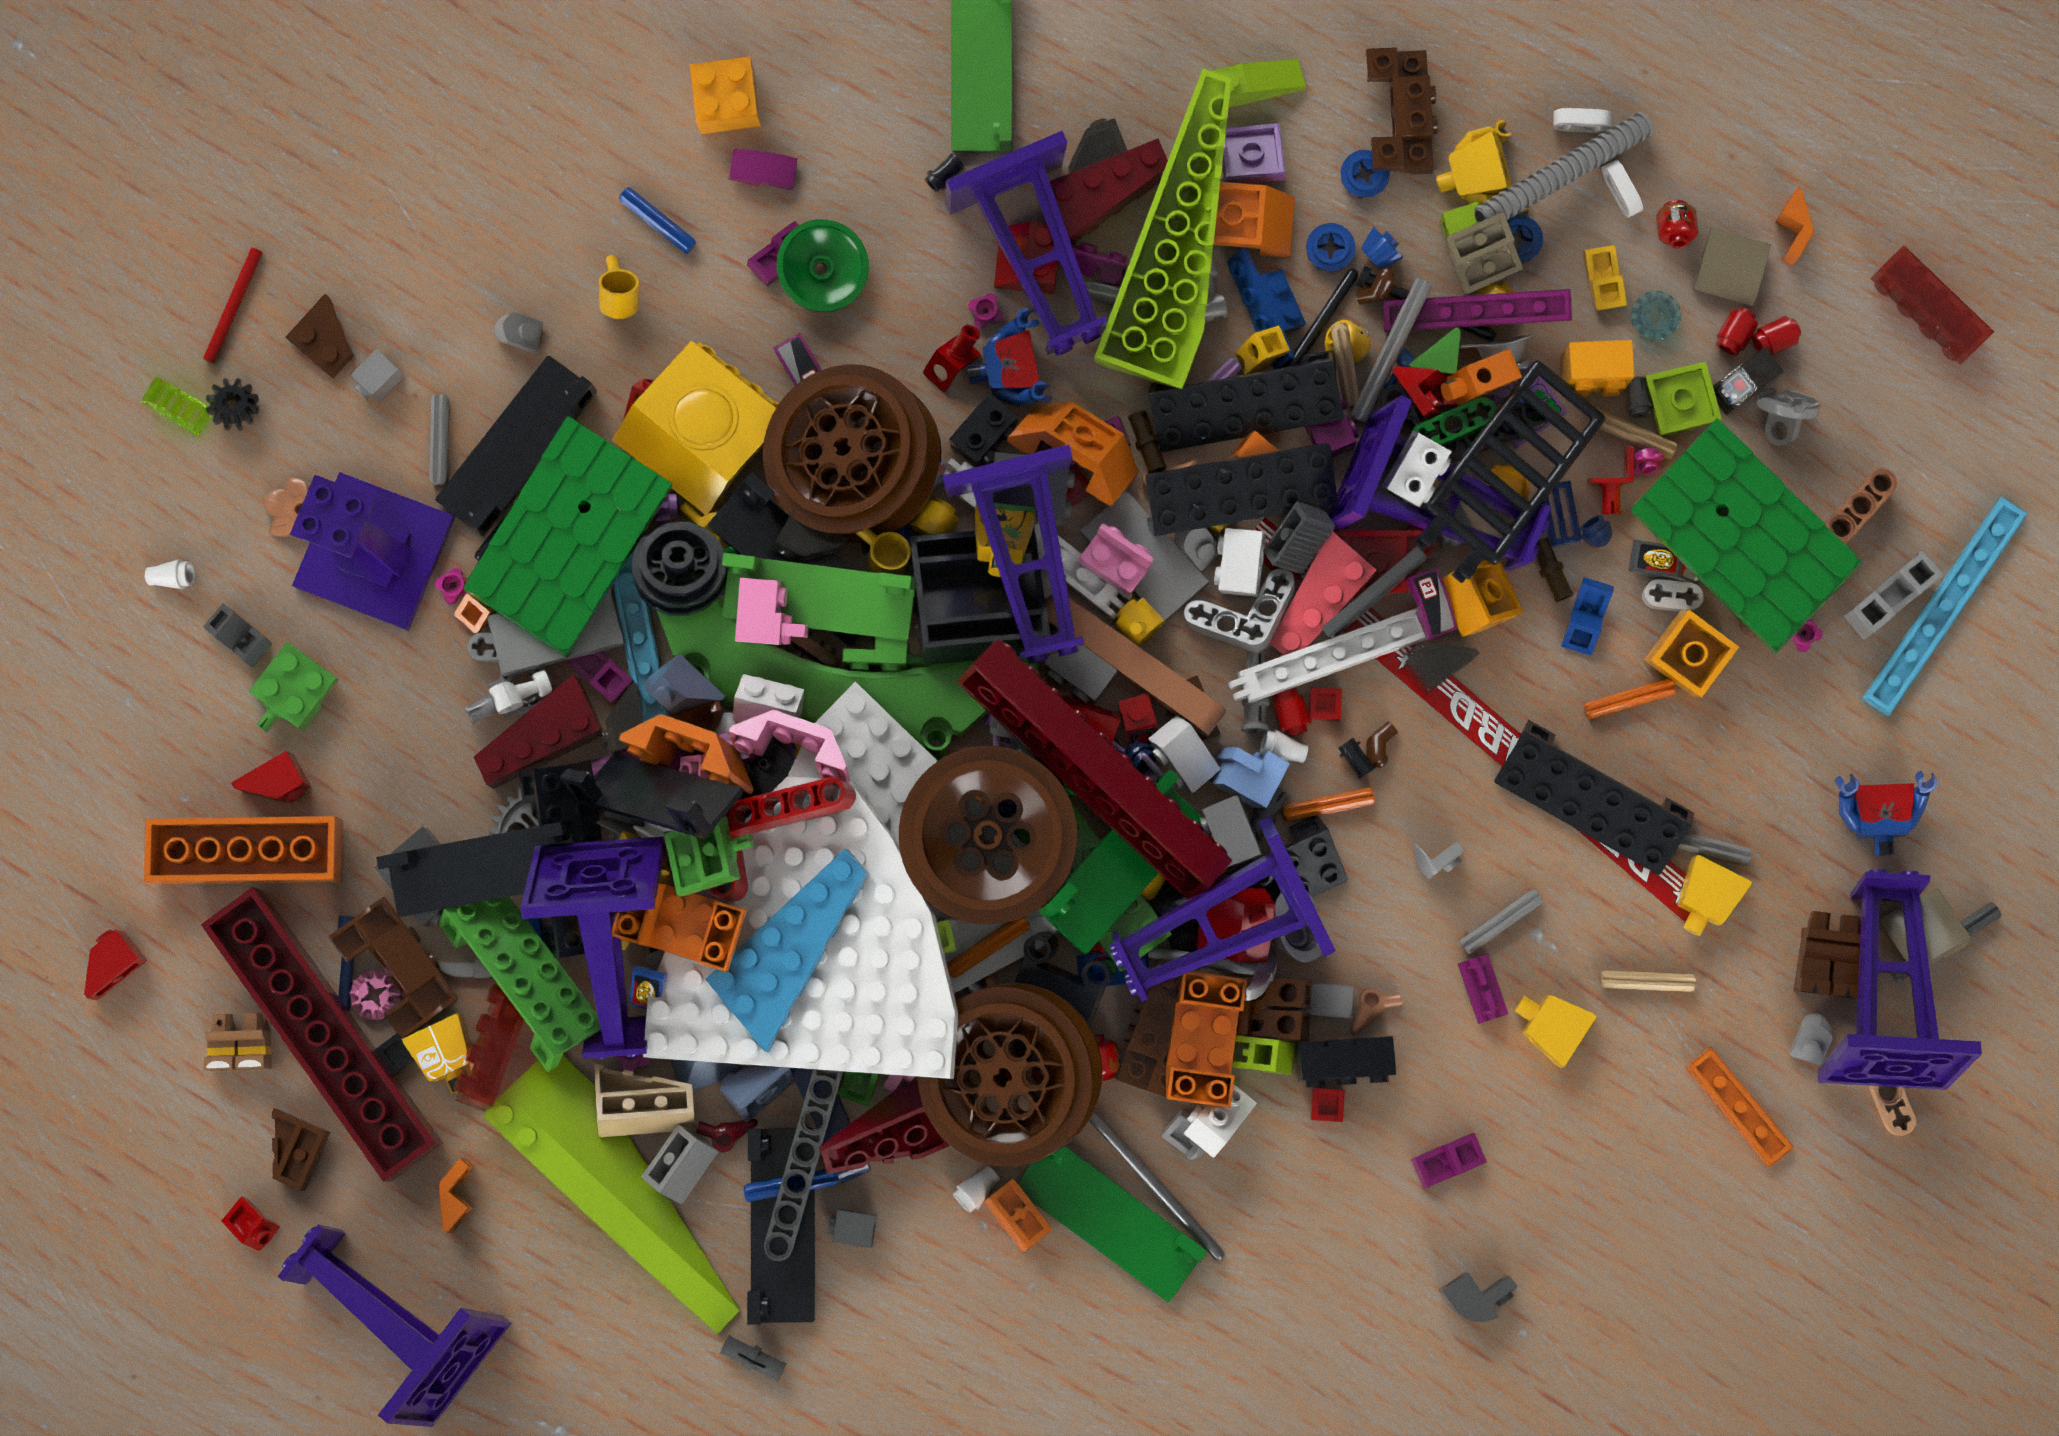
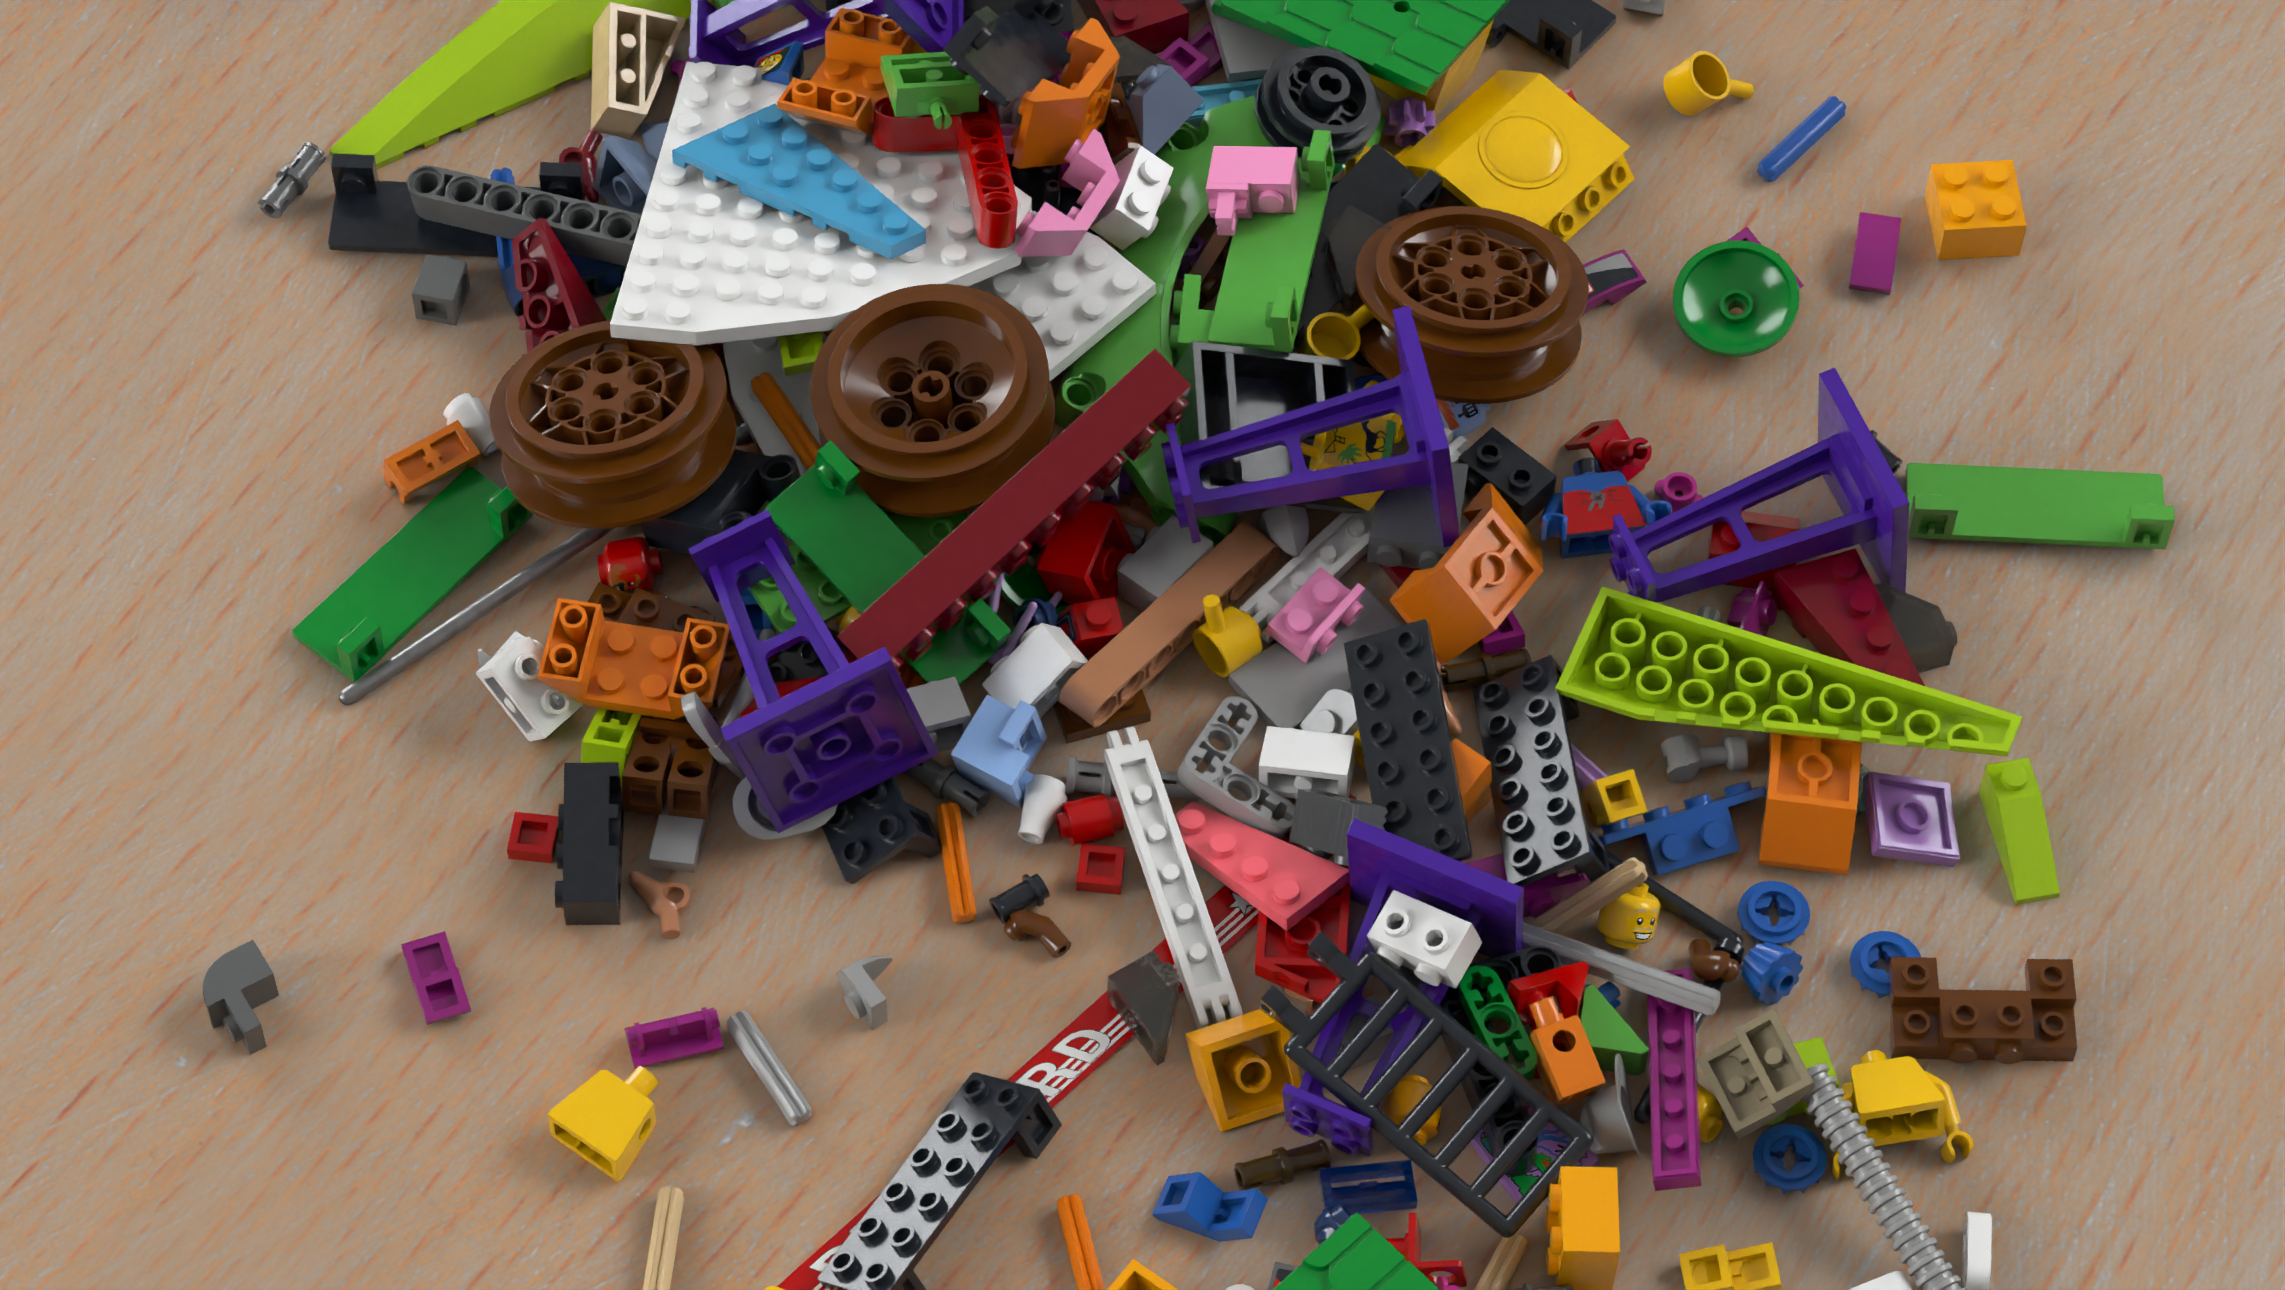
camera: 85 degrees right, 25 degrees down
(679, 1164) = (547, 106): light grey brick -> none
(1374, 593) = (1253, 913): dark grey tile -> none
(1433, 604) = (1232, 991): slope -> none

